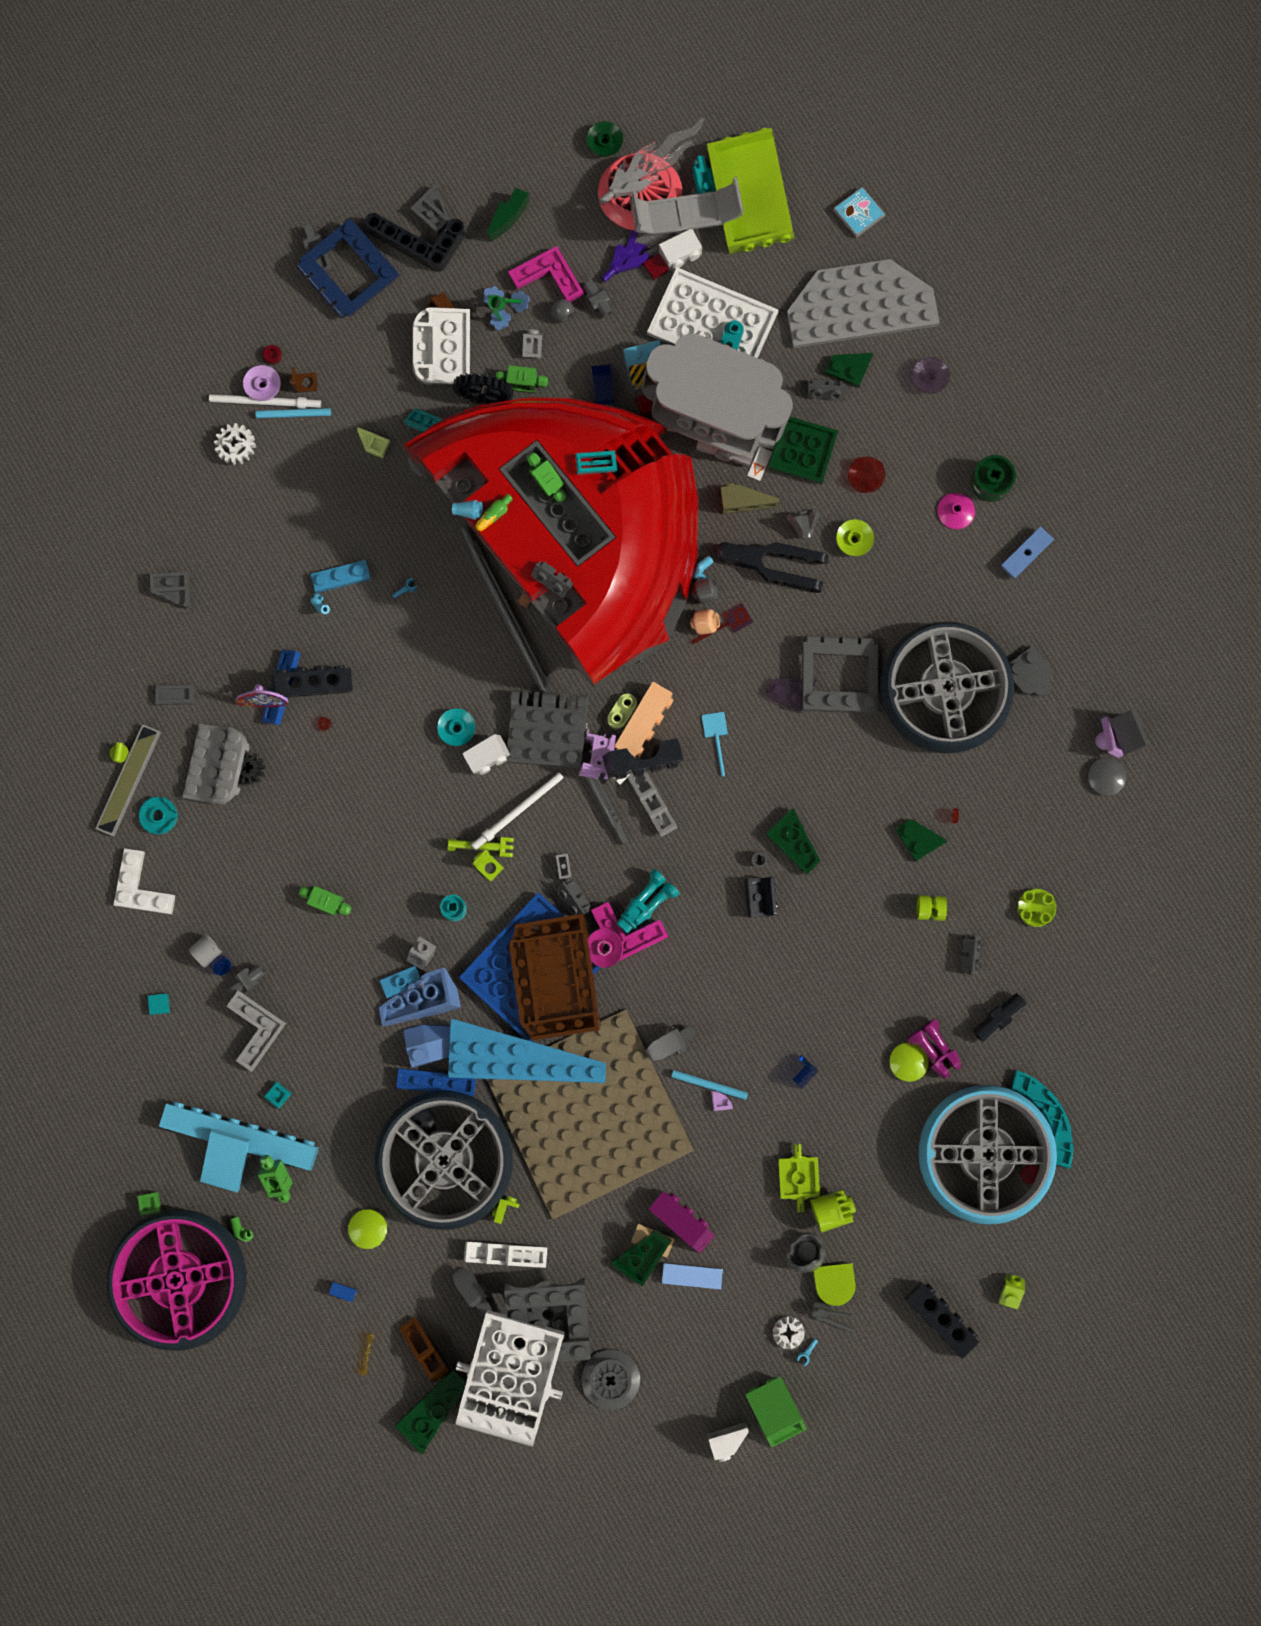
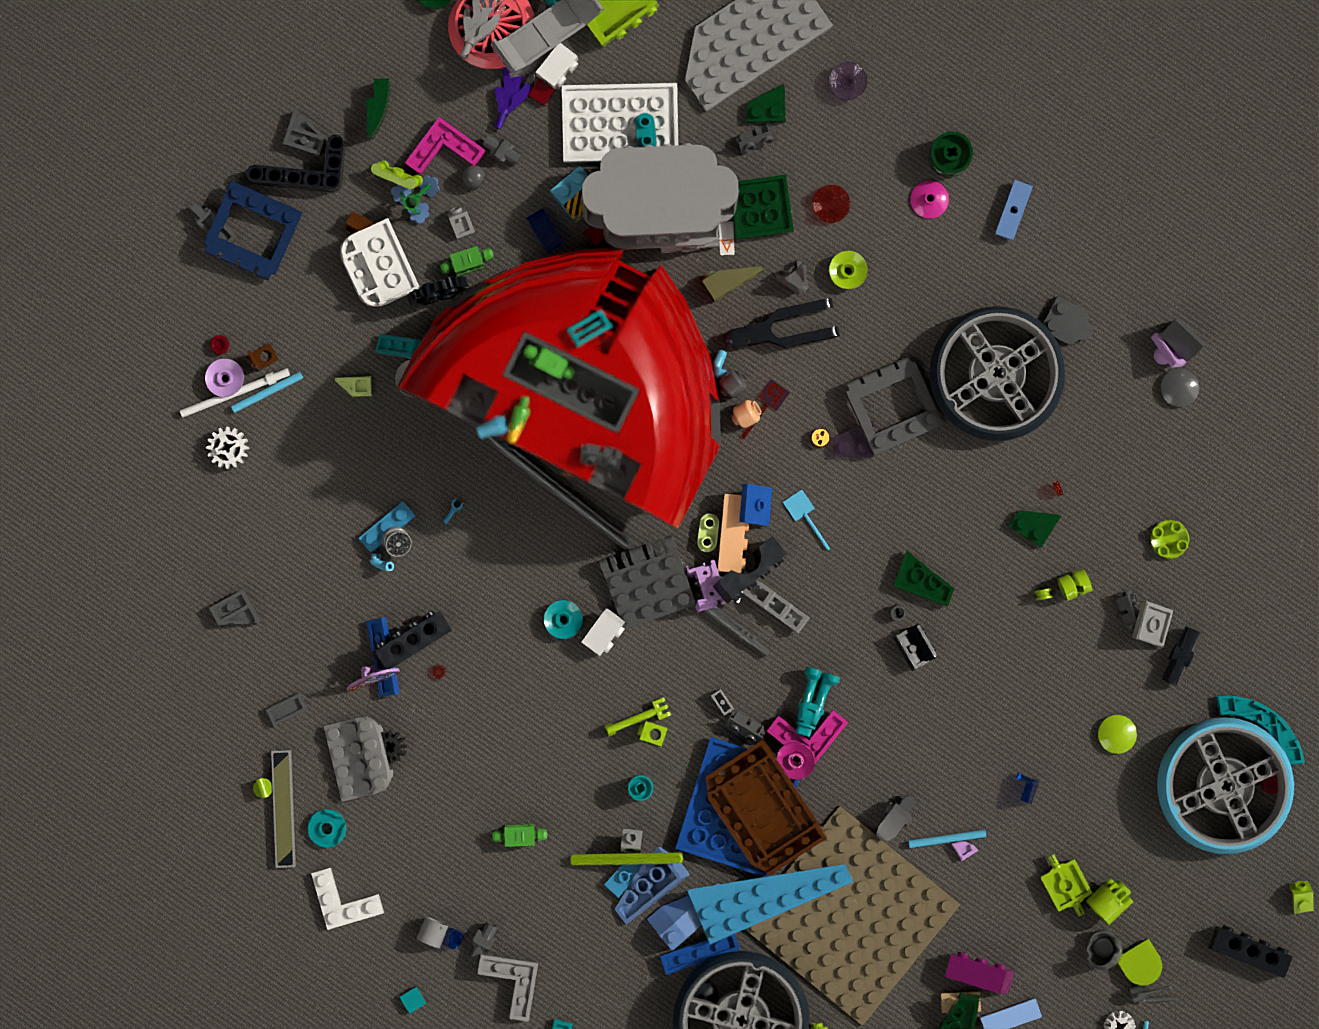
camera: 25 degrees left, 5 degrees up
(342, 591) = (396, 540): none -> light grey wheel
(410, 965) = (626, 858): none -> lime axle
(488, 834) = (640, 705): white bar -> none
(495, 278) = (396, 175): none -> lime plate
(675, 704) = (755, 504): none -> blue plate
(761, 673) = (820, 437): none -> light yellow tile
(898, 904) = (1043, 594): none -> lime bush
(919, 1038) = (1117, 709): magenta piece -> none
(986, 975) = (1152, 623): none -> light grey tile

